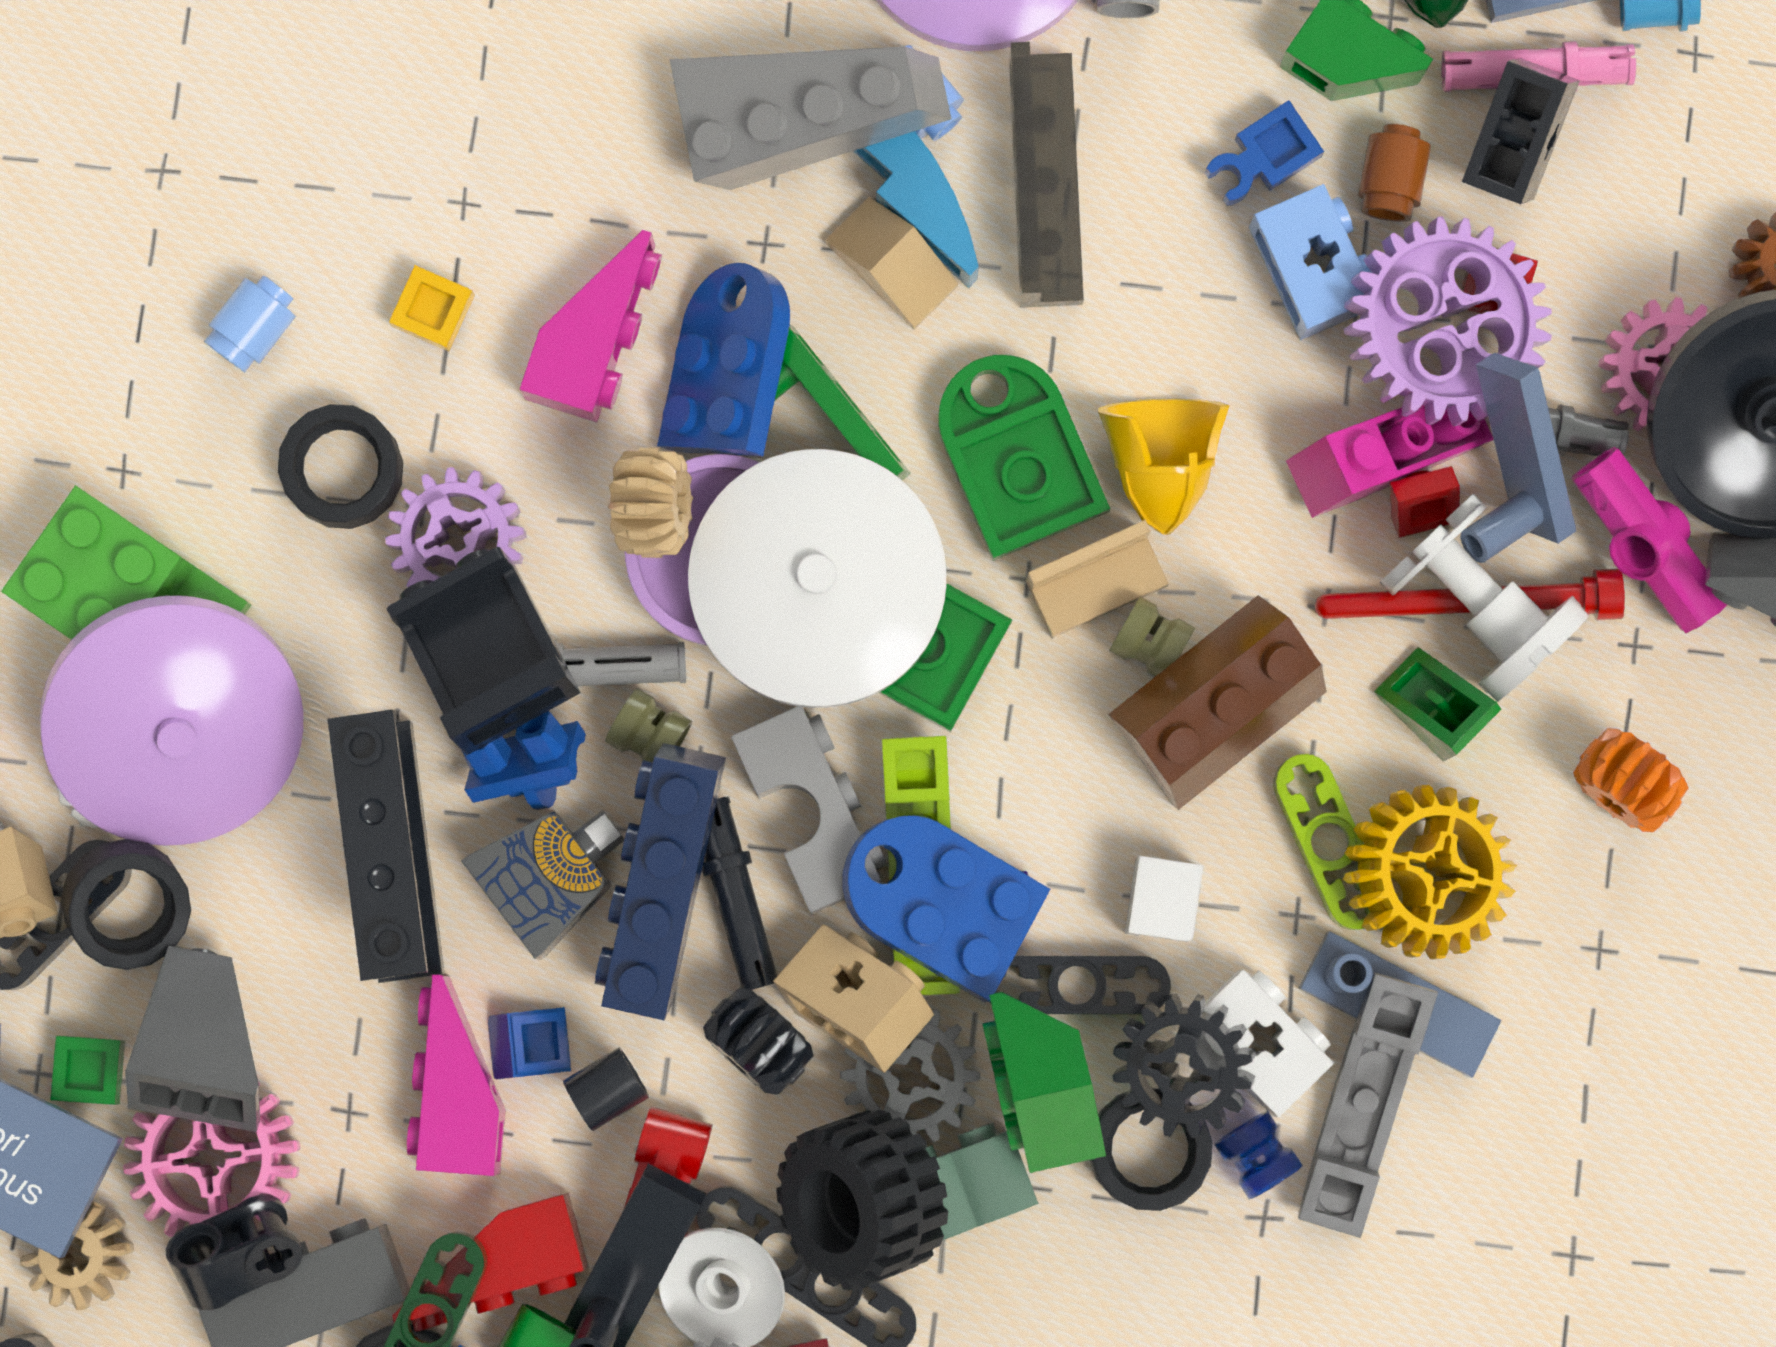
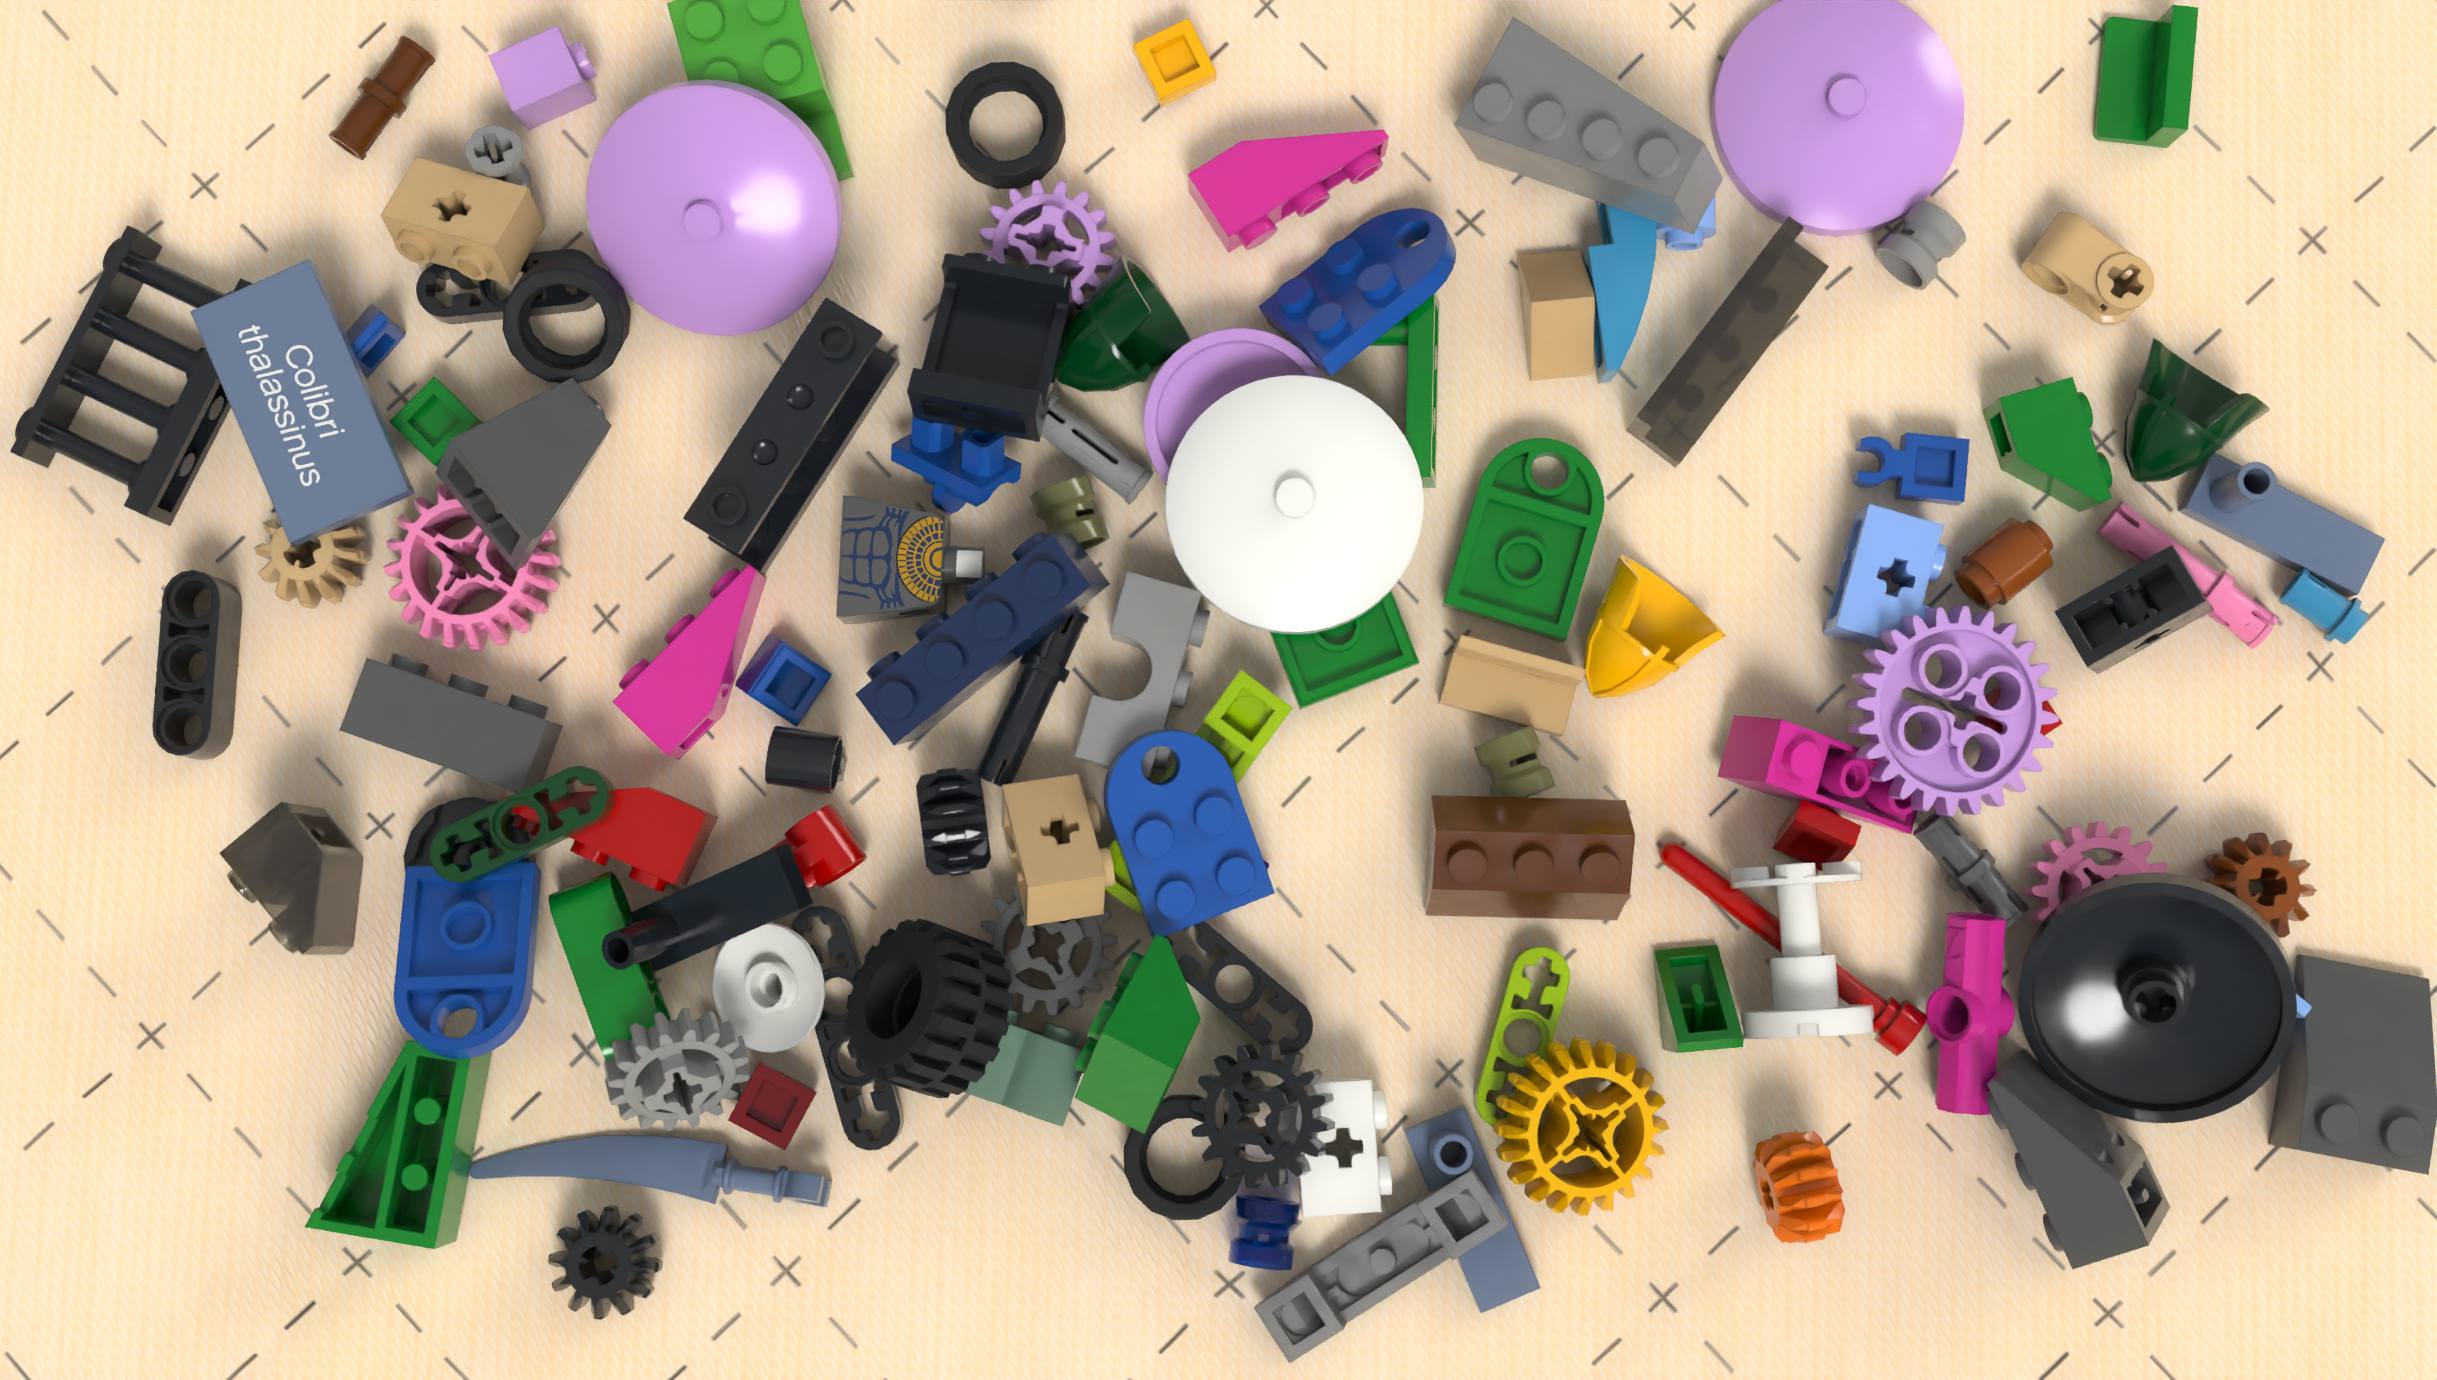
camera: 40 degrees right, 0 degrees up
(229, 1254) = (419, 647): black piece -> none
(567, 556) = (1120, 332): none -> dark green helmet
(650, 502) = (1213, 338): tan gear -> none
(1164, 899) = (1356, 974): white panel -> none
(1527, 460) = (1925, 869): sand blue piece -> none

